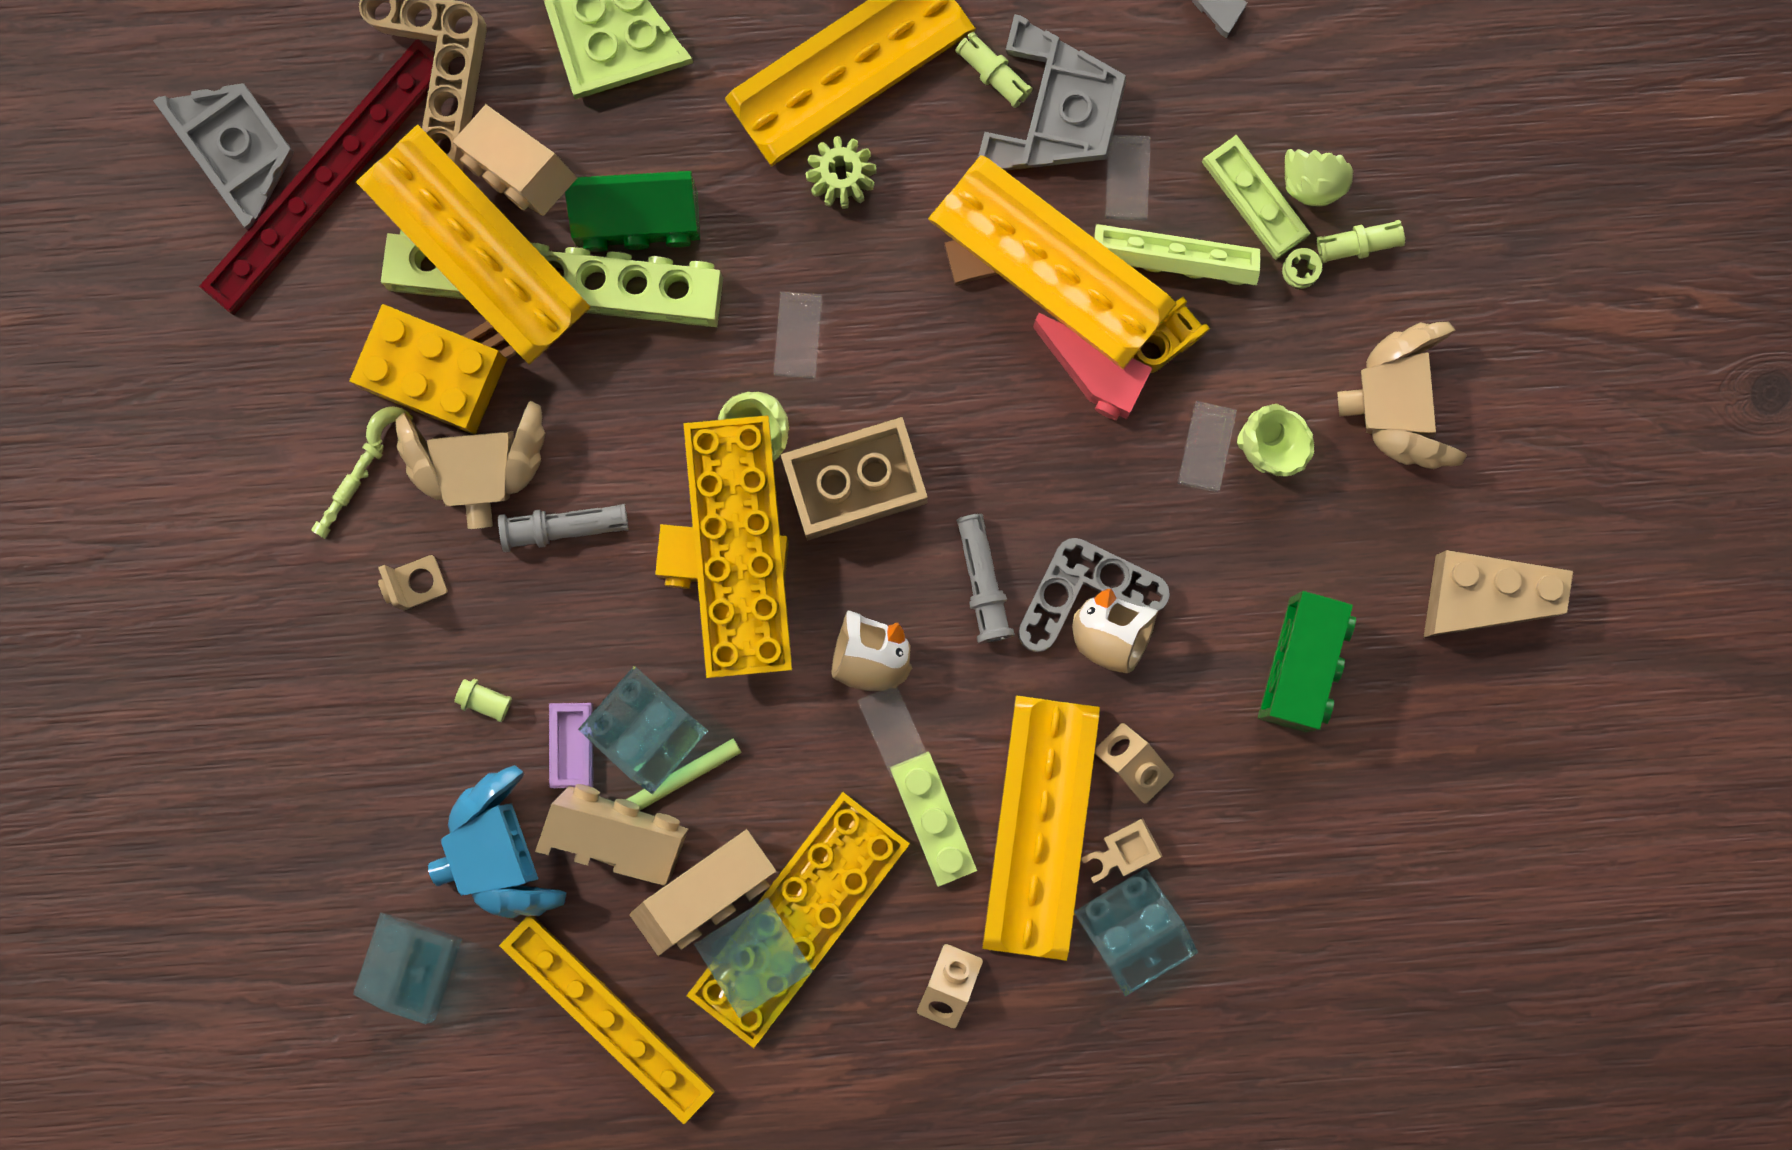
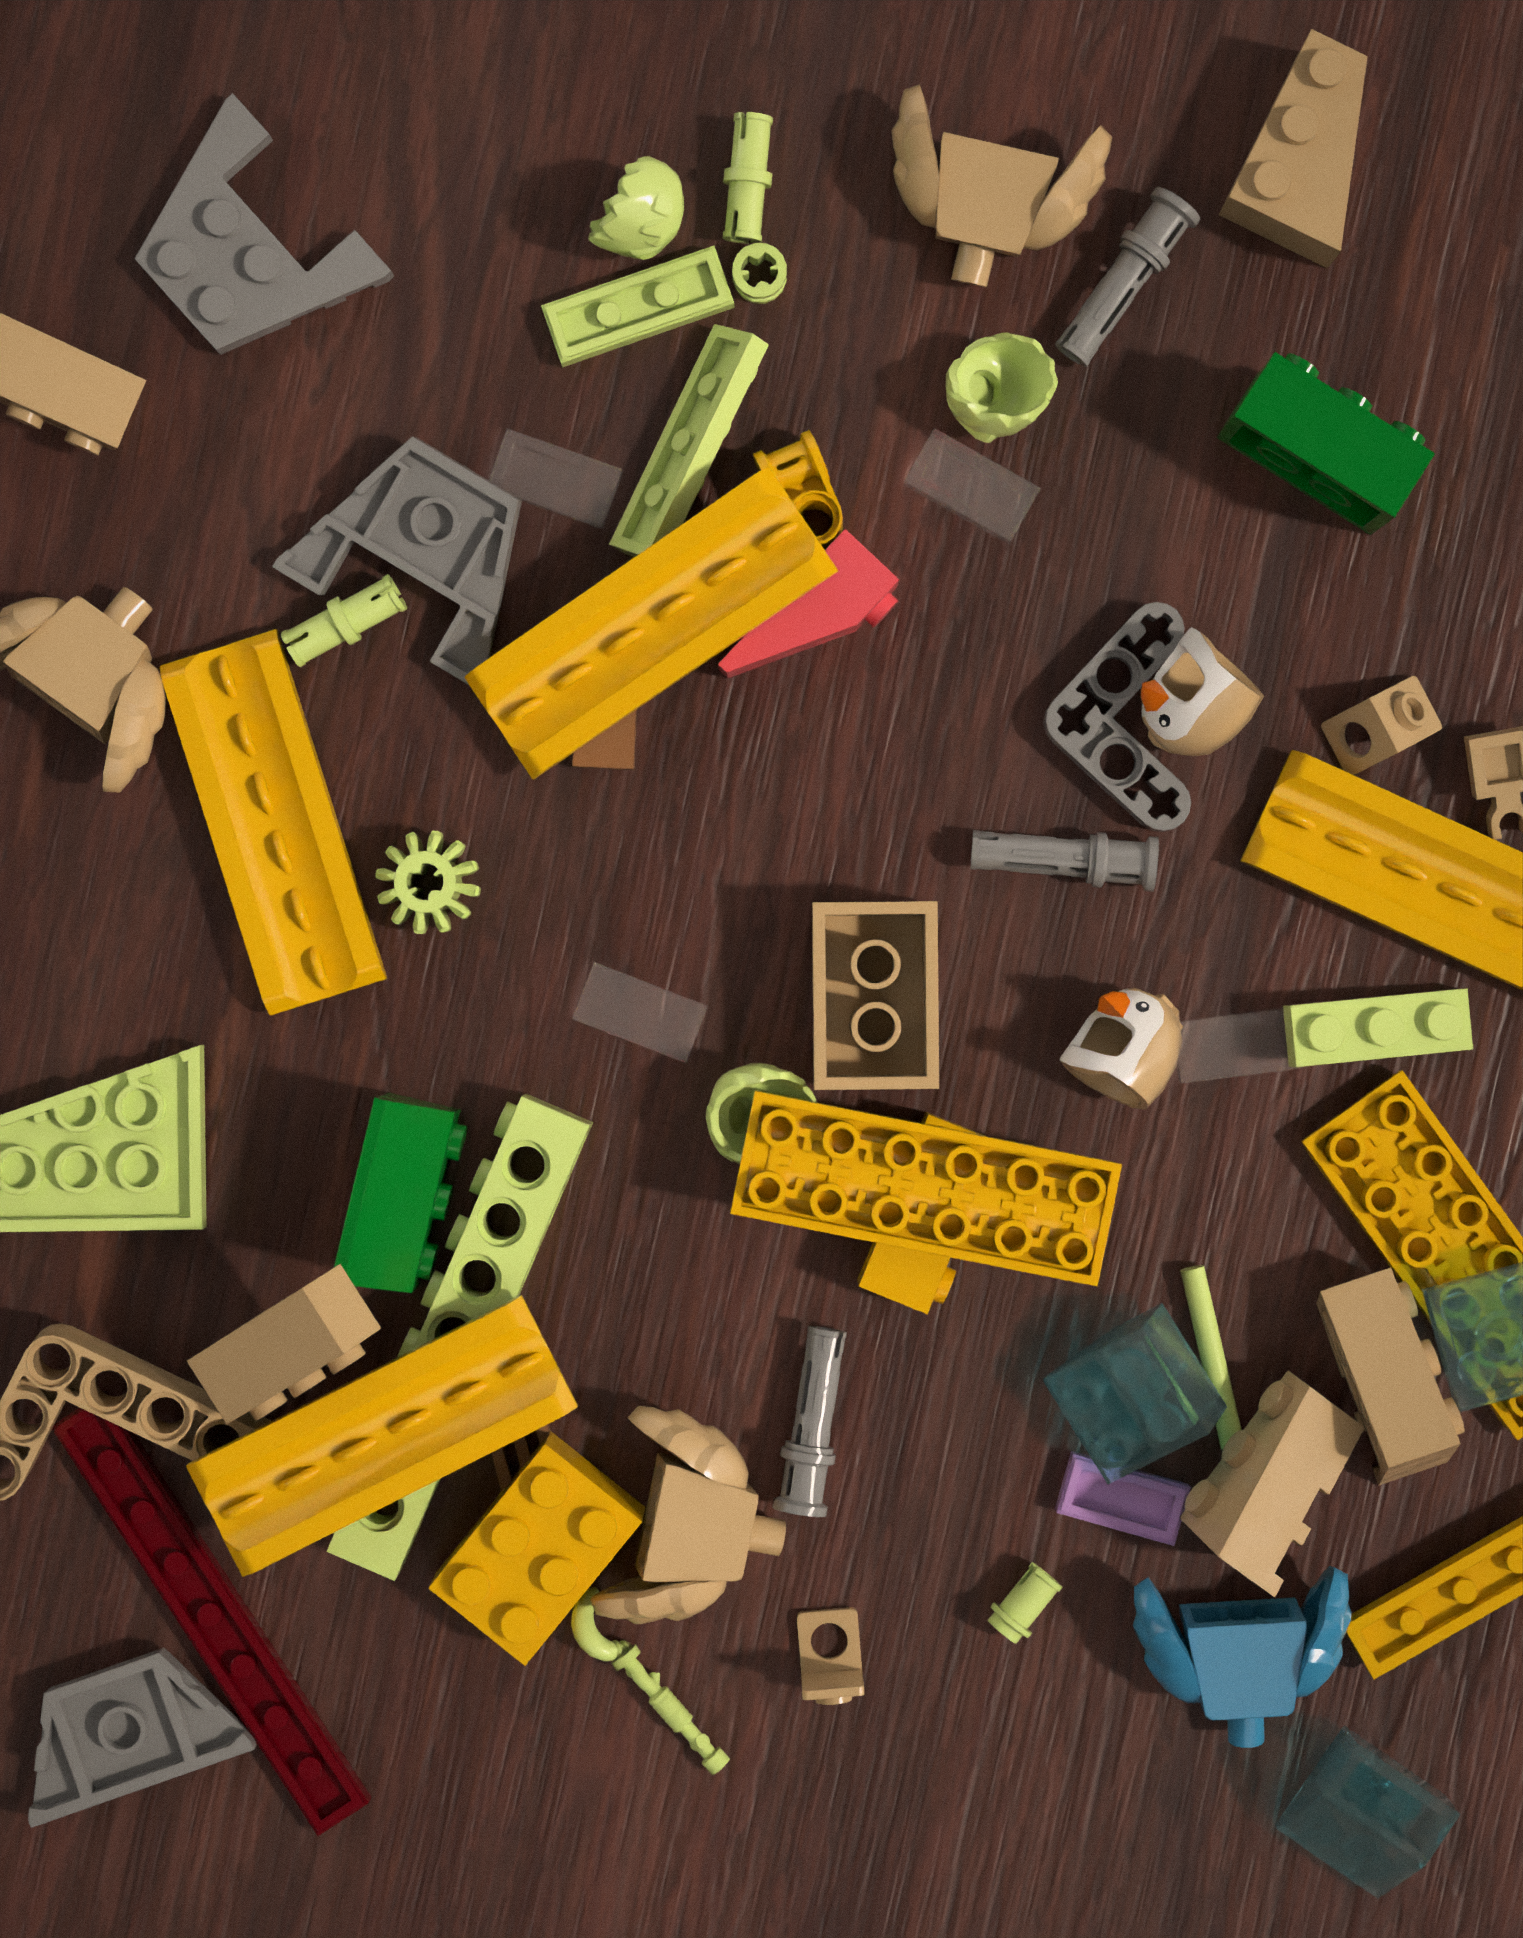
camera: 75 degrees left, 5 degrees up
(1392, 510) = (1141, 254): none -> light grey pin

